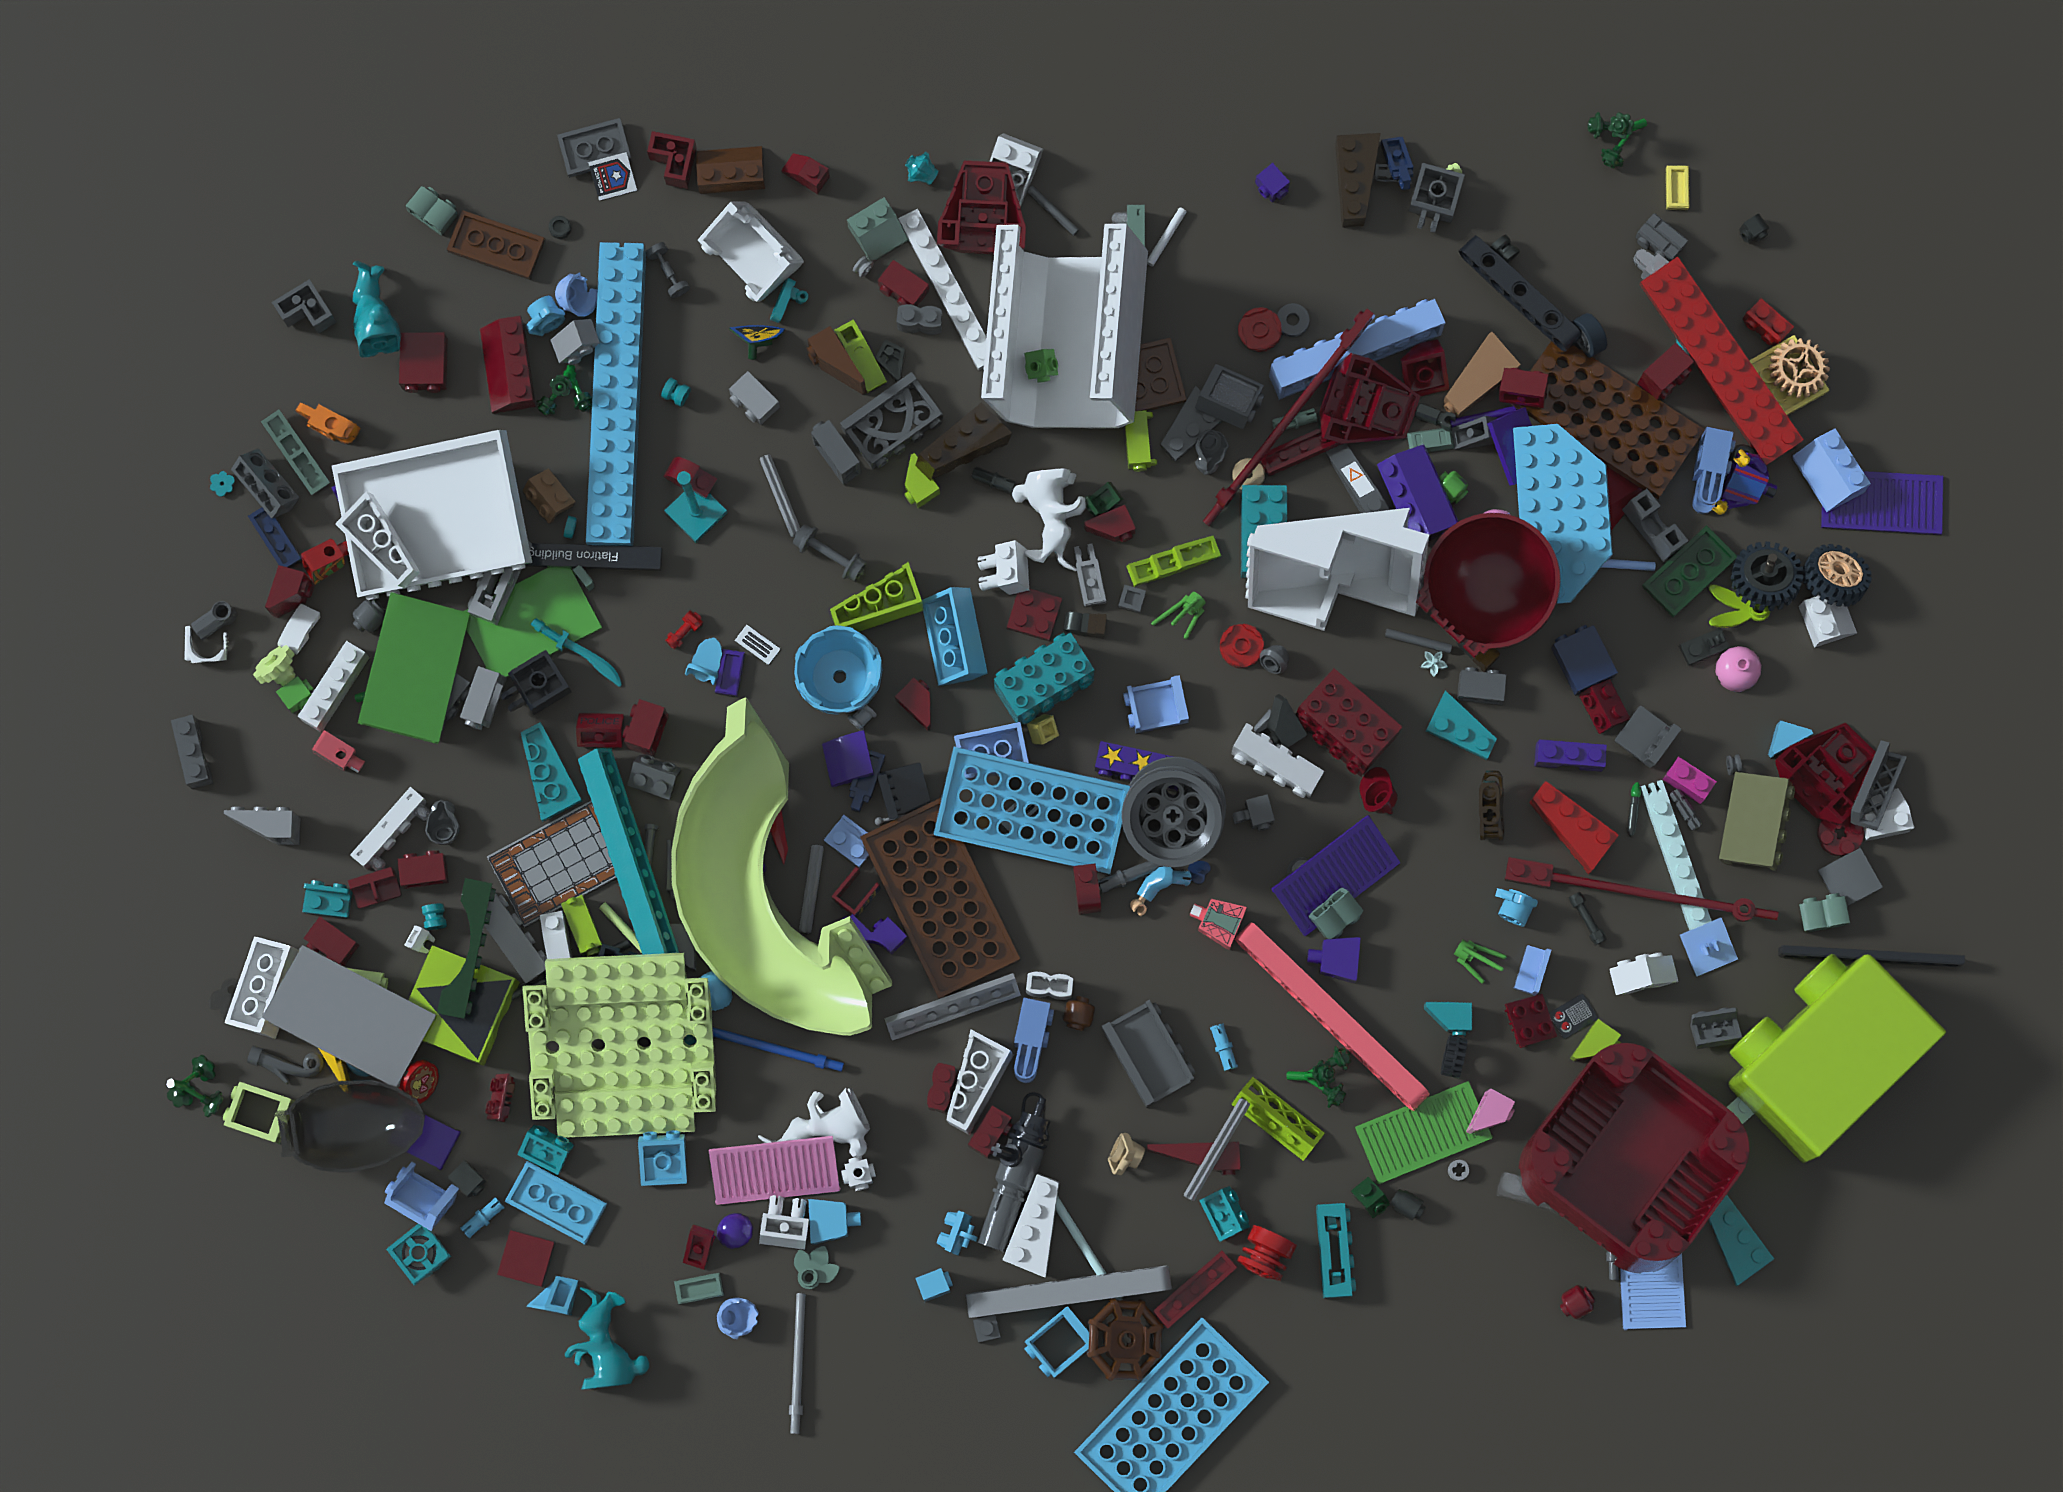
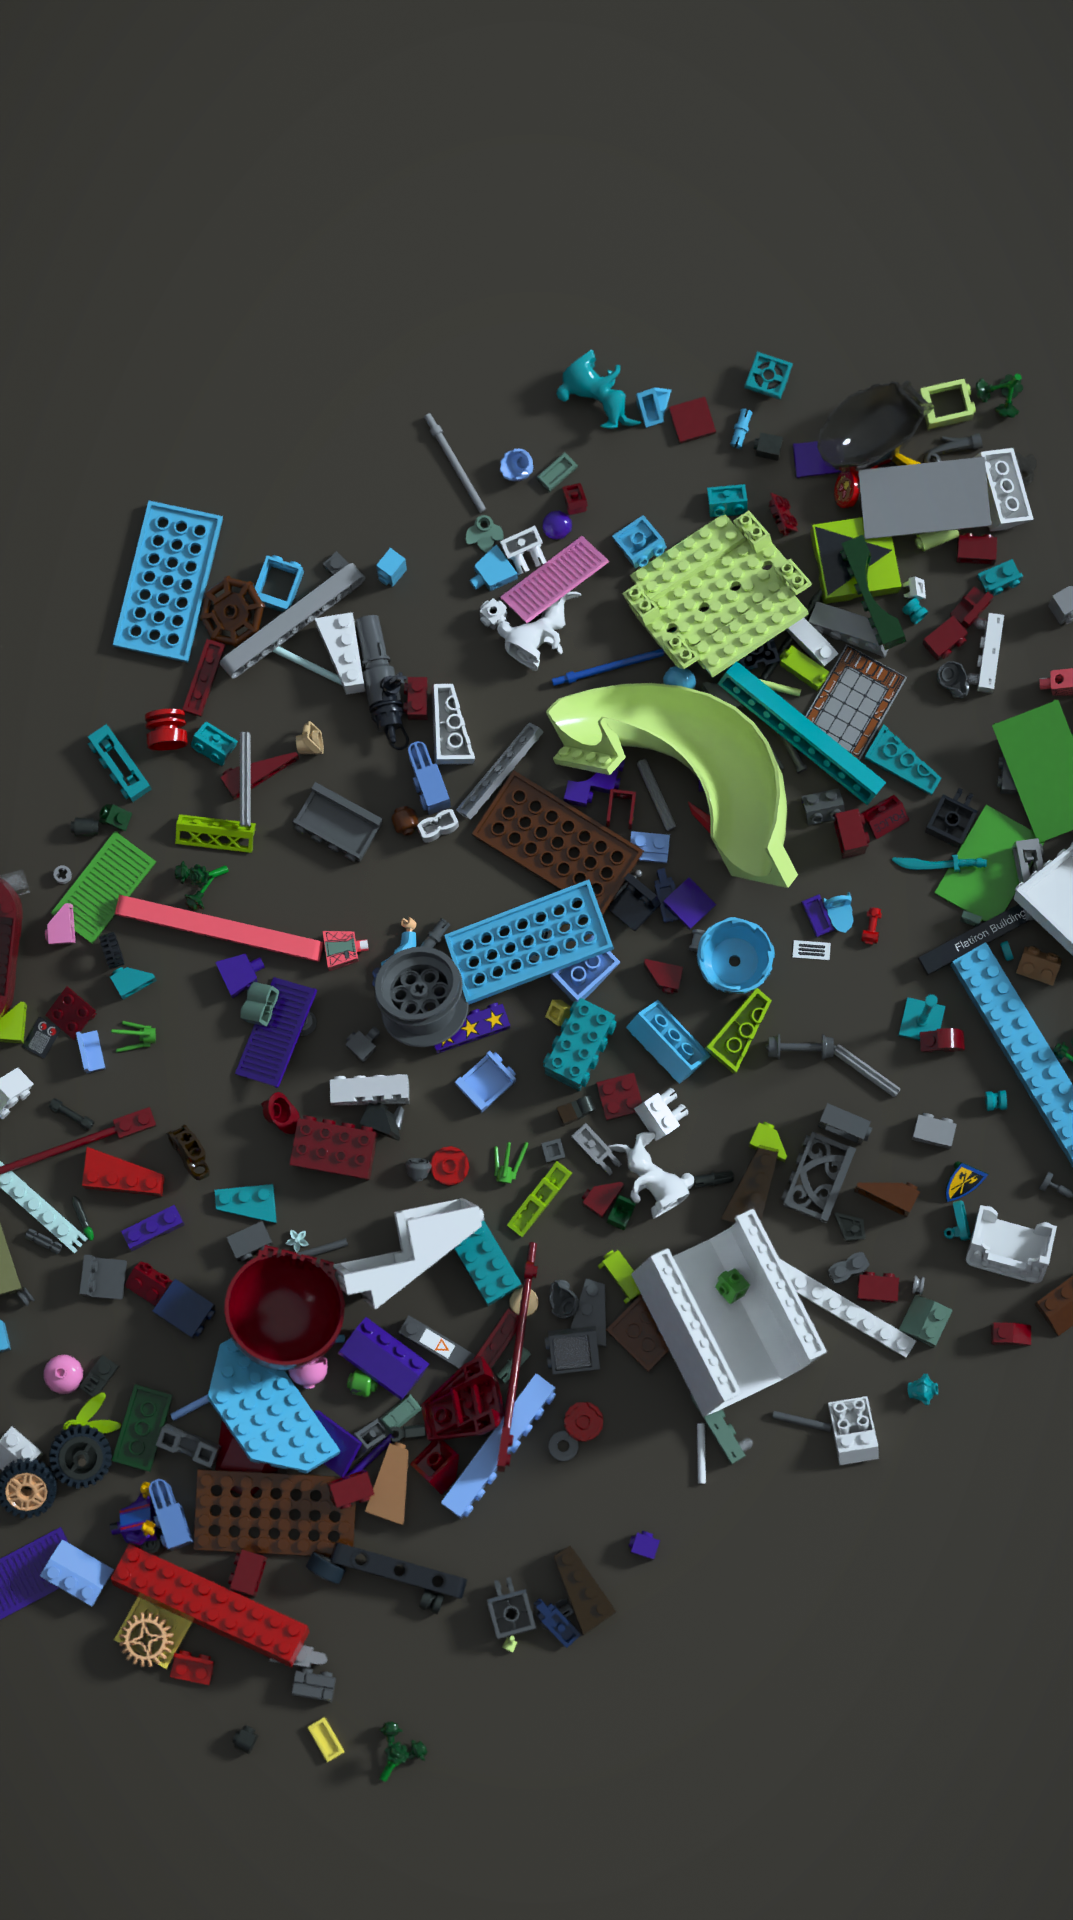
camera: 150 degrees right, 0 degrees up
(419, 1197) = (793, 412): light blue panel -> none
(483, 698) = (984, 783): light grey window -> none
(556, 1202) = (696, 469): medium azure tile -> none
(860, 354) = (874, 1212): lime slope -> none
(943, 1081) = (470, 705): dark red brick -> none
(960, 1233) = (394, 616): medium azure hips -> none
(978, 203) = (853, 1381): dark red wedge -> none
(1087, 889) = (453, 912): dark red brick -> none
(1223, 1047) = (285, 860): medium azure pin -> none
(1516, 906) = (129, 1089): medium azure piece -> none
(1689, 780) = (52, 1262): dark pink brick -> none

